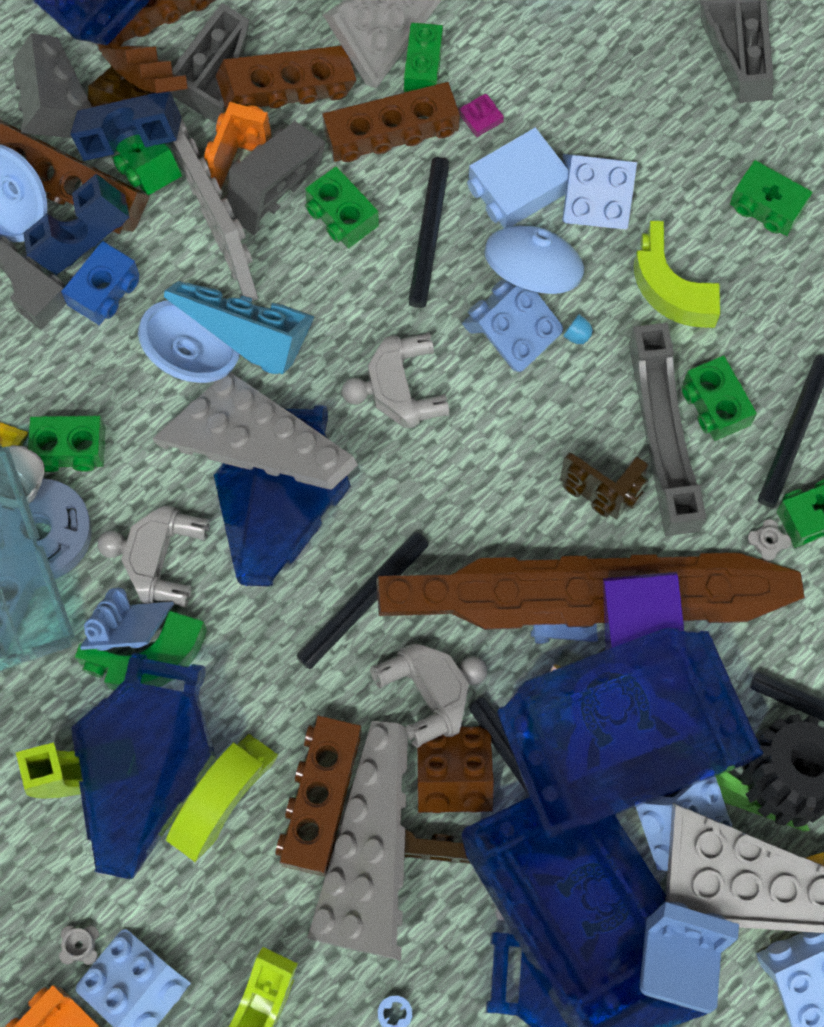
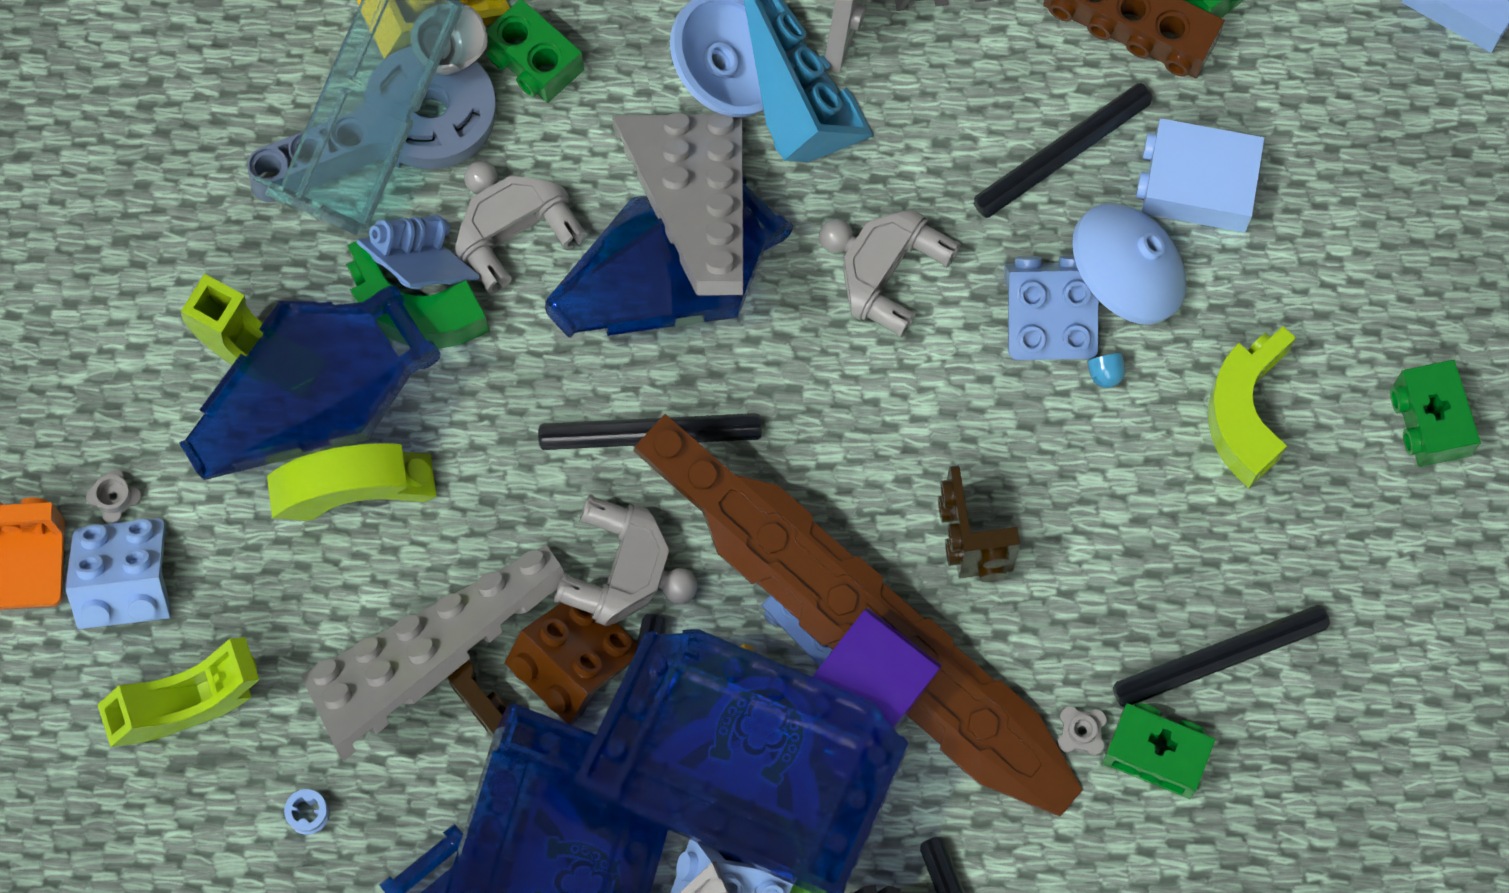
camera: 45 degrees right, 0 degrees up
(315, 855) = (423, 588): reddish brown brick -> none
(348, 204) = (1001, 55): green brick -> none
(481, 115) = (1232, 82): magenta tile -> none
(598, 191) = (1266, 253): bracket -> none
(674, 479) = (1089, 536): dark grey arch -> none
(726, 397) = (1180, 558): green brick -> none

